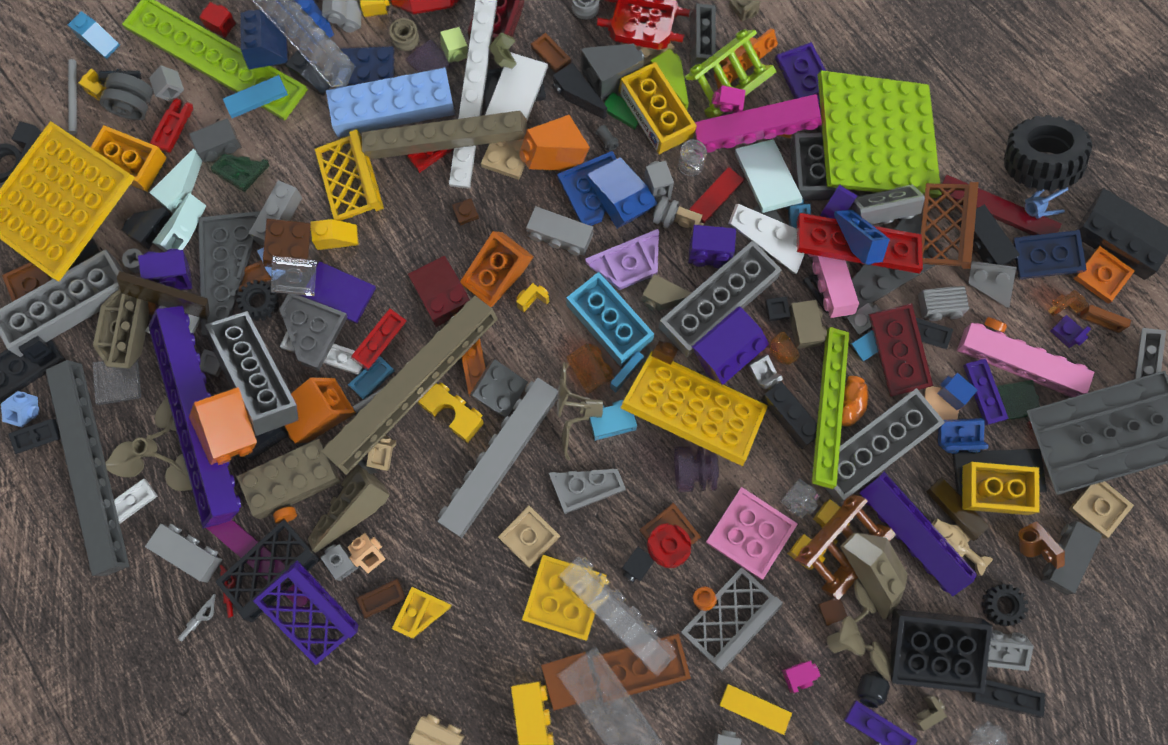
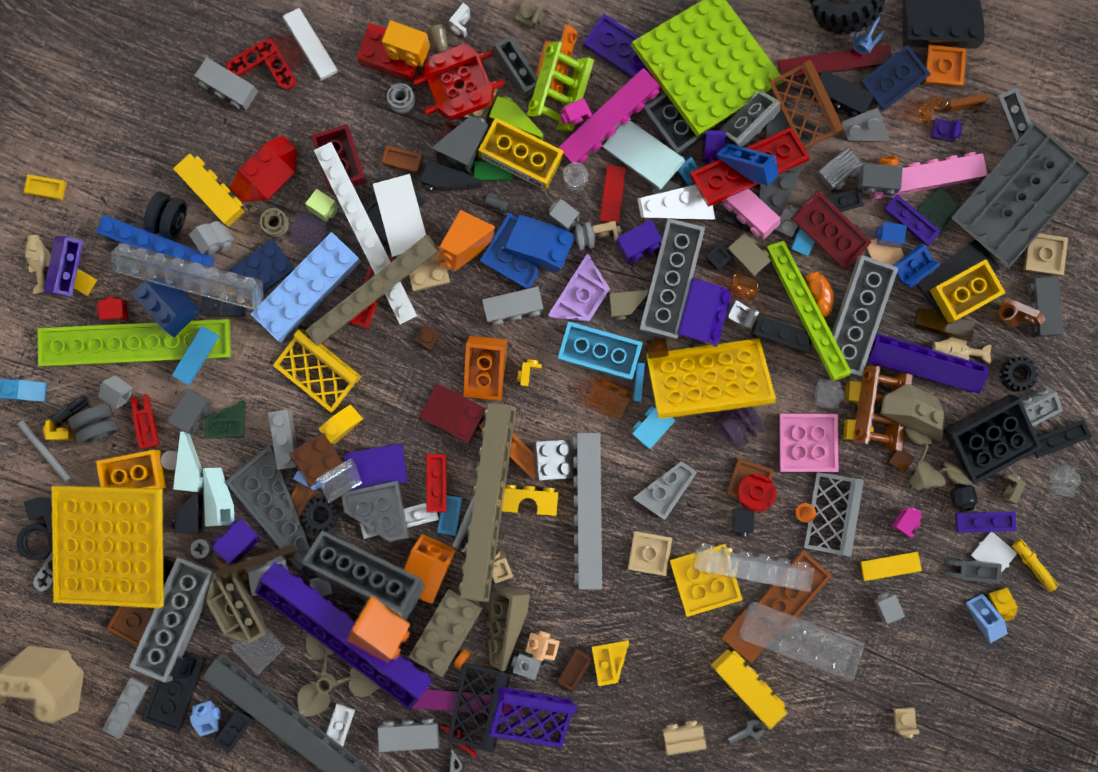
camera: 30 degrees left, 10 degrees up
(165, 167) = (169, 460): none -> light grey tile
(500, 50) = (368, 190): olive bracket -> none
(587, 406) = (631, 432): dark tan plant -> none
(978, 330) = (880, 178): none -> dark grey brick

